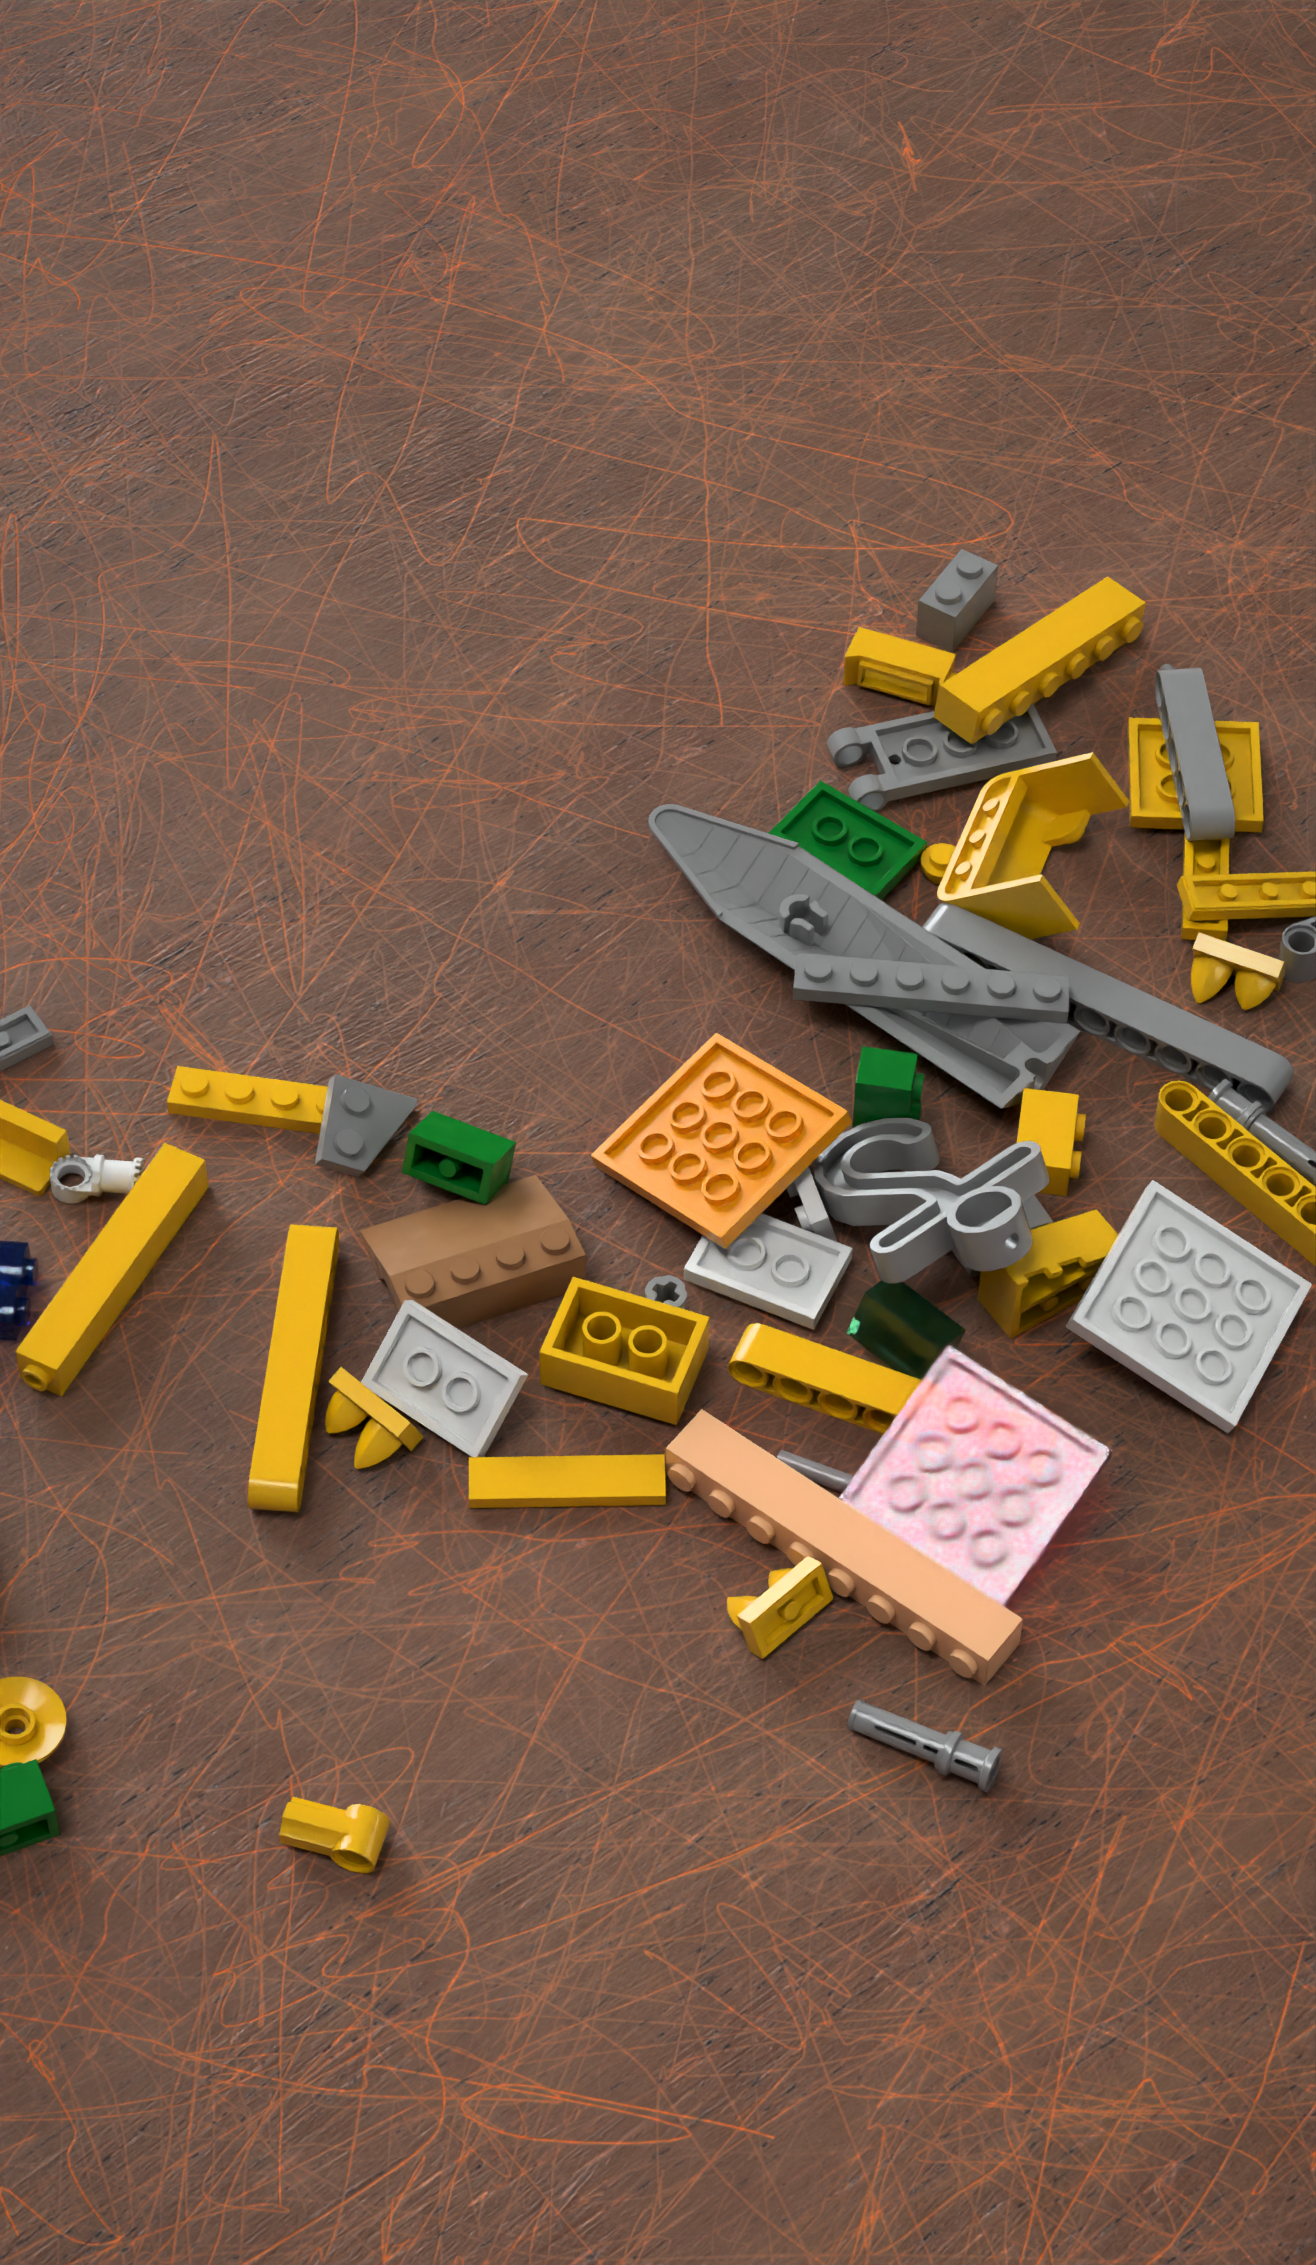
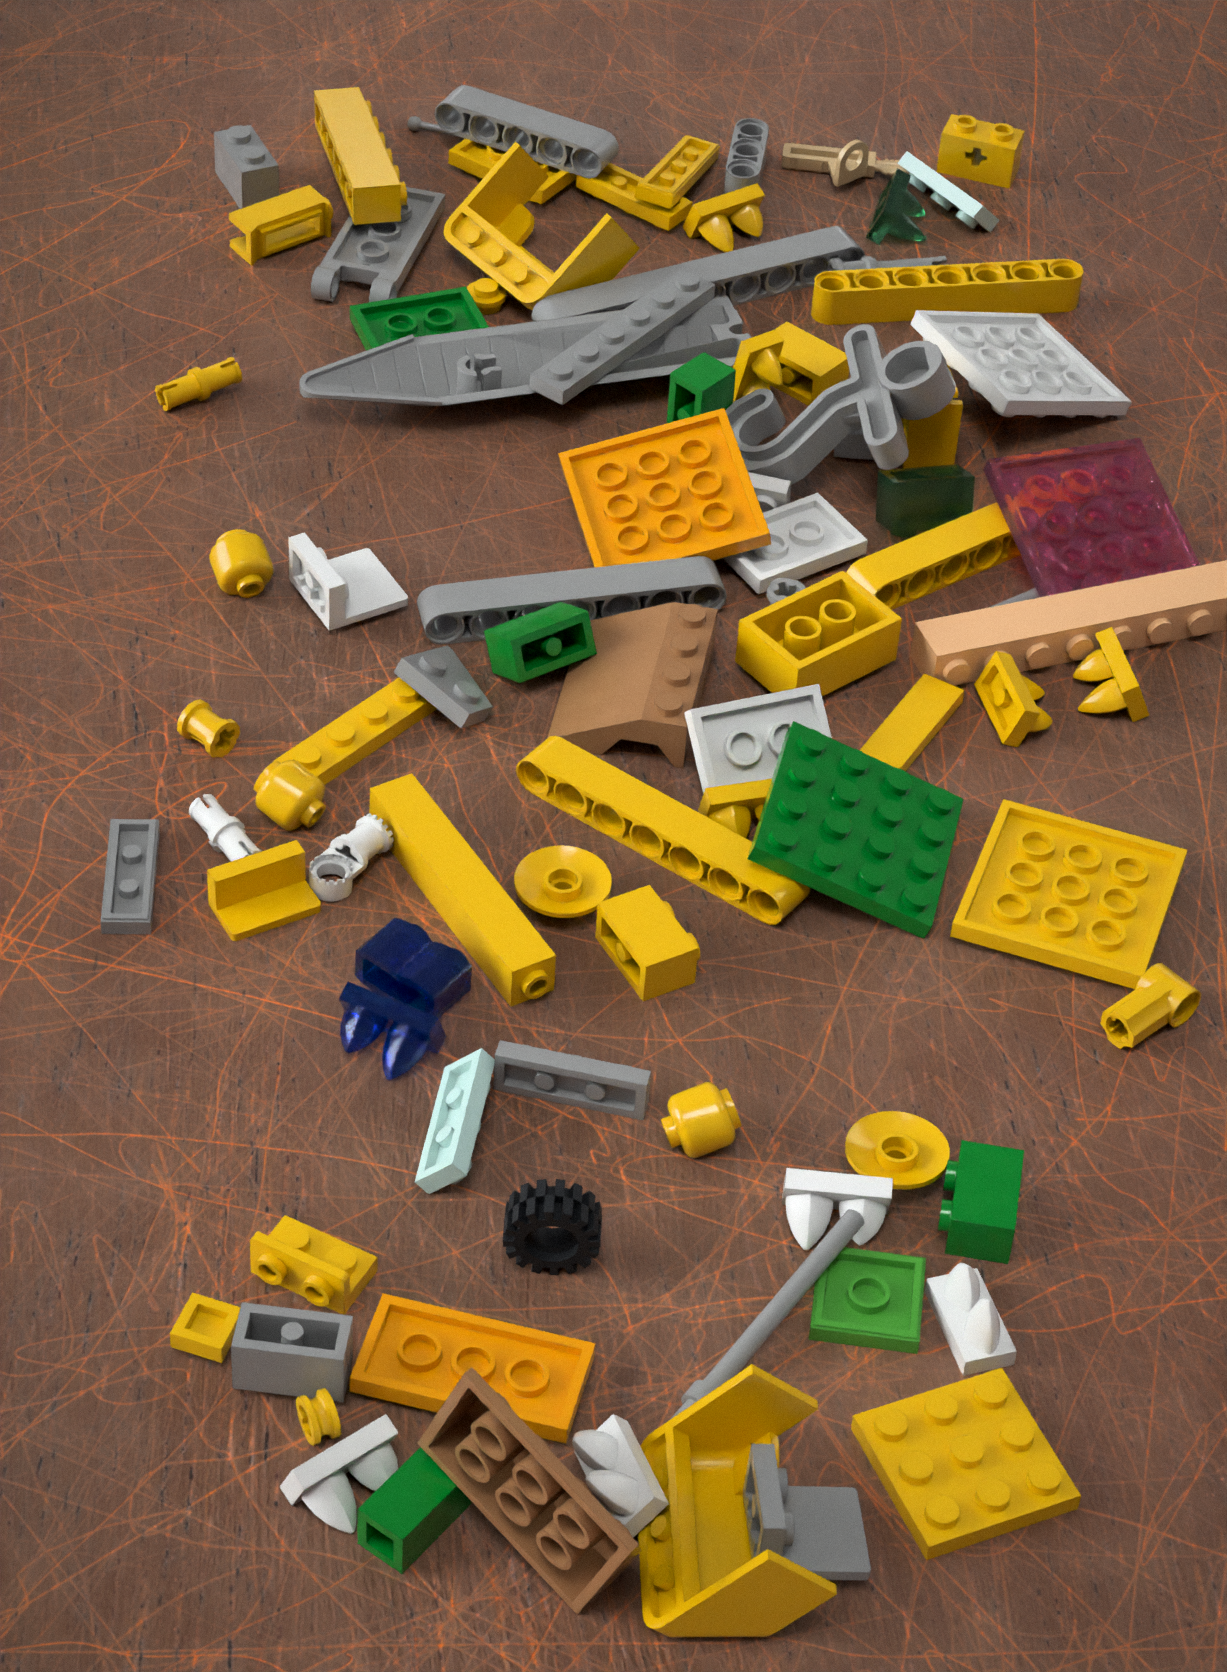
camera: 60 degrees left, 10 degrees down
(70, 1084) = (223, 831): none -> white pin
(137, 1098) = (290, 795): none -> yellow head
(142, 1427) = (647, 942): none -> yellow brick
(169, 1317) = (562, 881): none -> yellow dish
(180, 1003) = (208, 728): none -> yellow bush
(387, 1502) = (857, 829): none -> green plate
(400, 907) = (241, 562): none -> yellow head
(433, 988) = (342, 587): none -> white bracket
(445, 1705) = (1069, 894): none -> yellow plate
(551, 1152) = (466, 609): none -> light grey beam
(624, 746) = (198, 383): none -> yellow pin
(698, 1529) = (1011, 700): none -> yellow tile
(975, 1114) = (758, 364): none -> yellow tile

